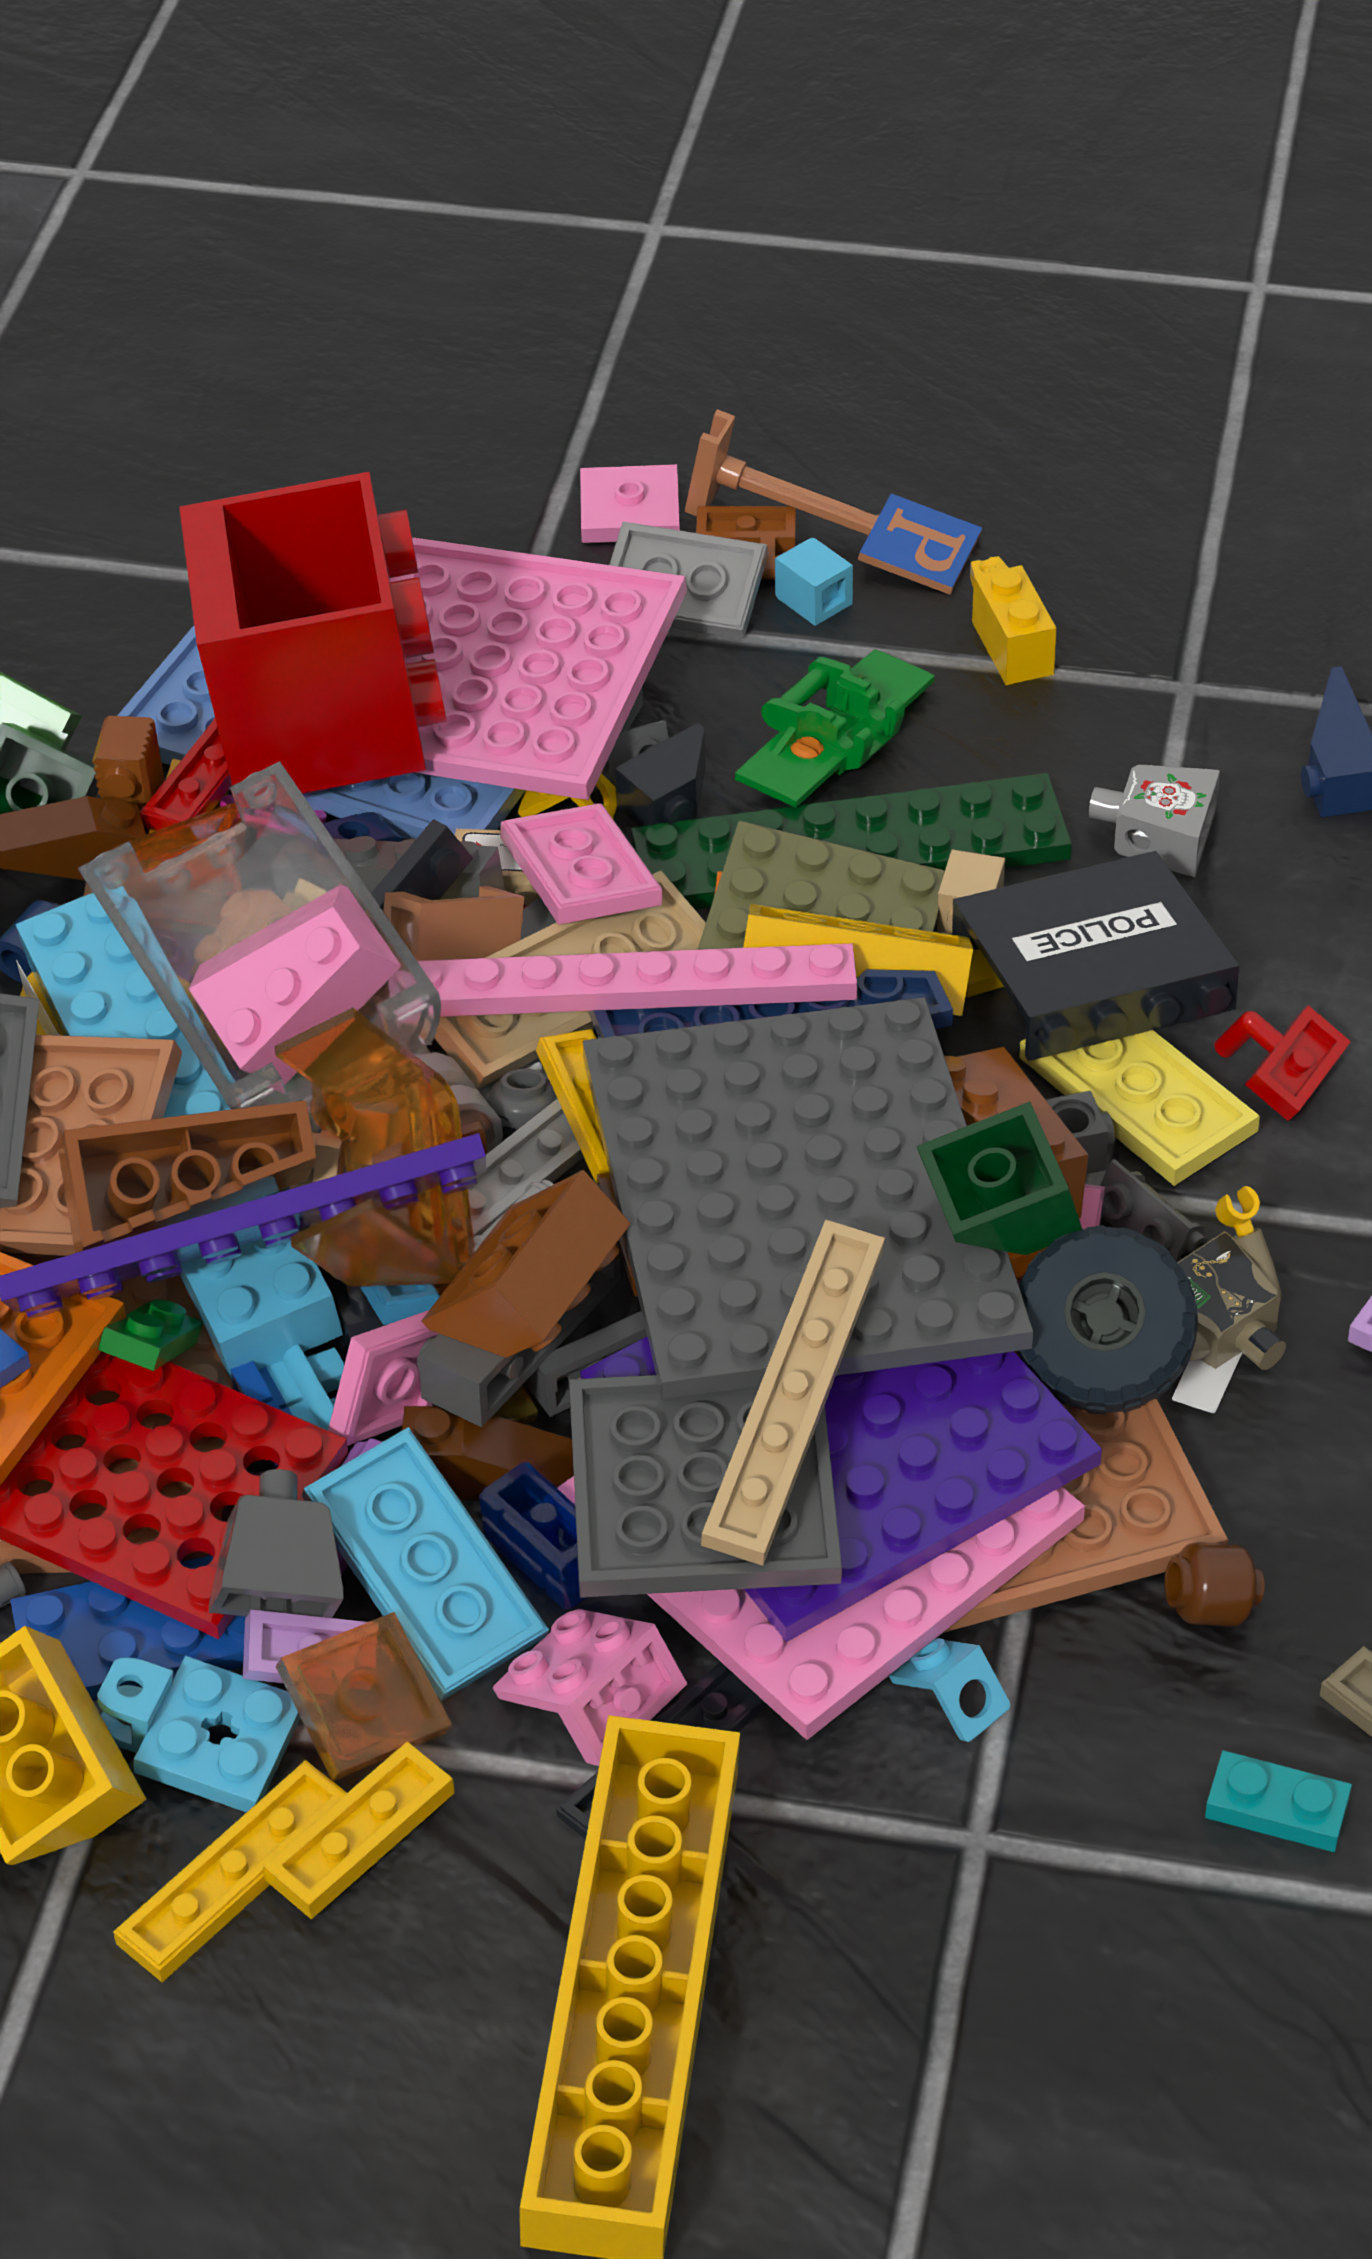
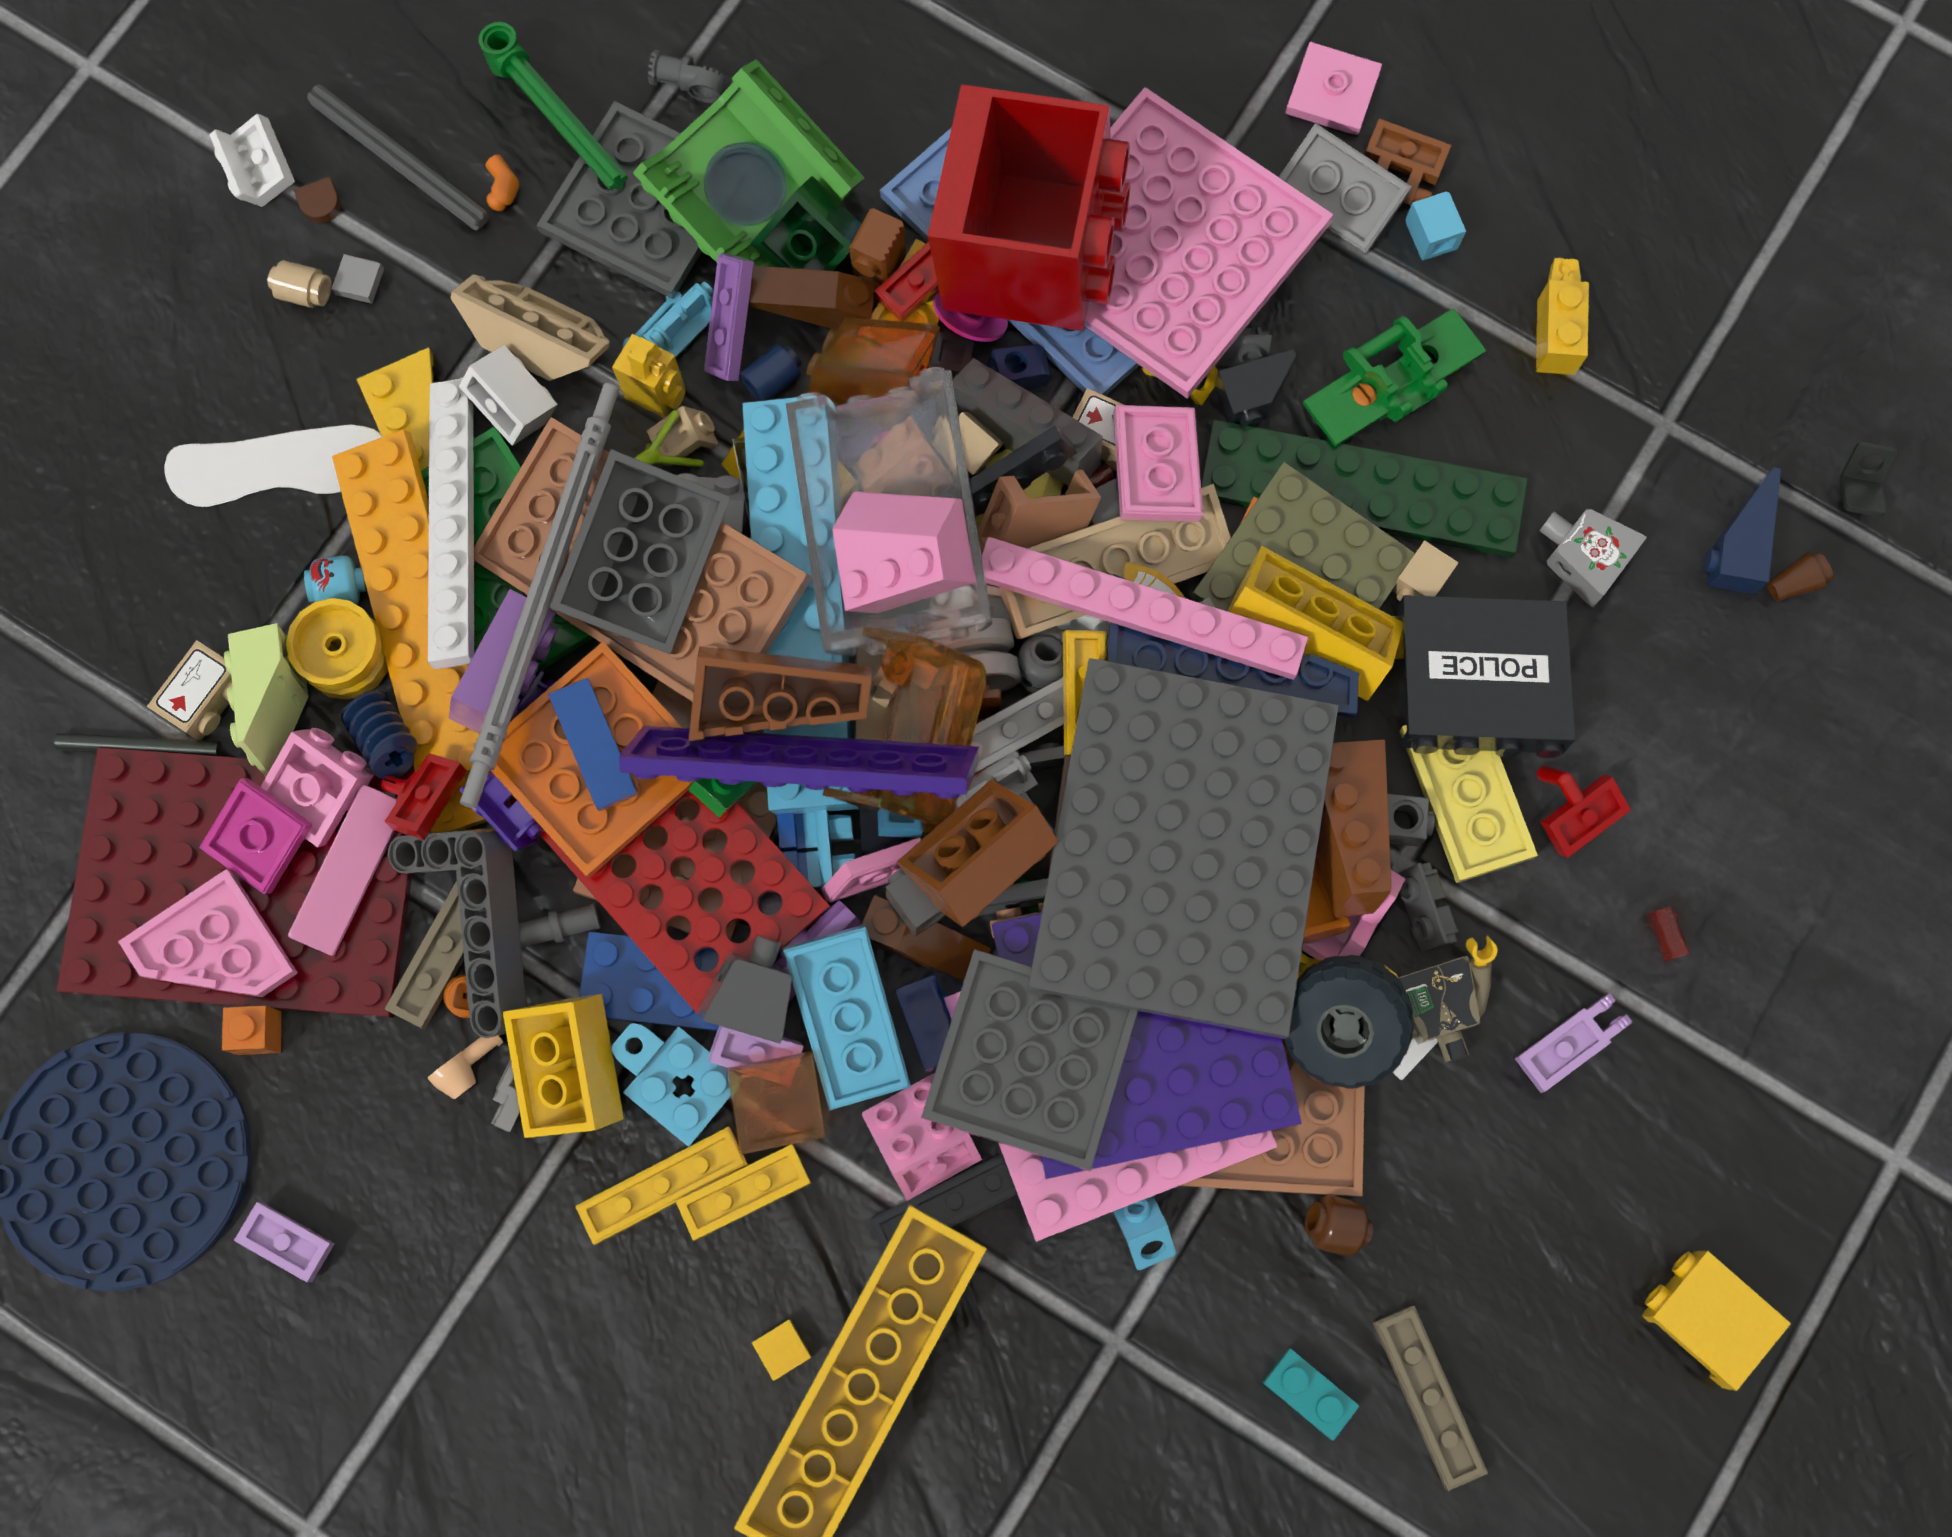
camera: 20 degrees right, 30 degrees up
(496, 2009) = (781, 1350): none -> yellow tile
(792, 1393) = (1108, 1037): tan plate -> none
(901, 540) = (1524, 207): nougat piece -> none
(1001, 1183) = (1312, 917): dark green slope -> none

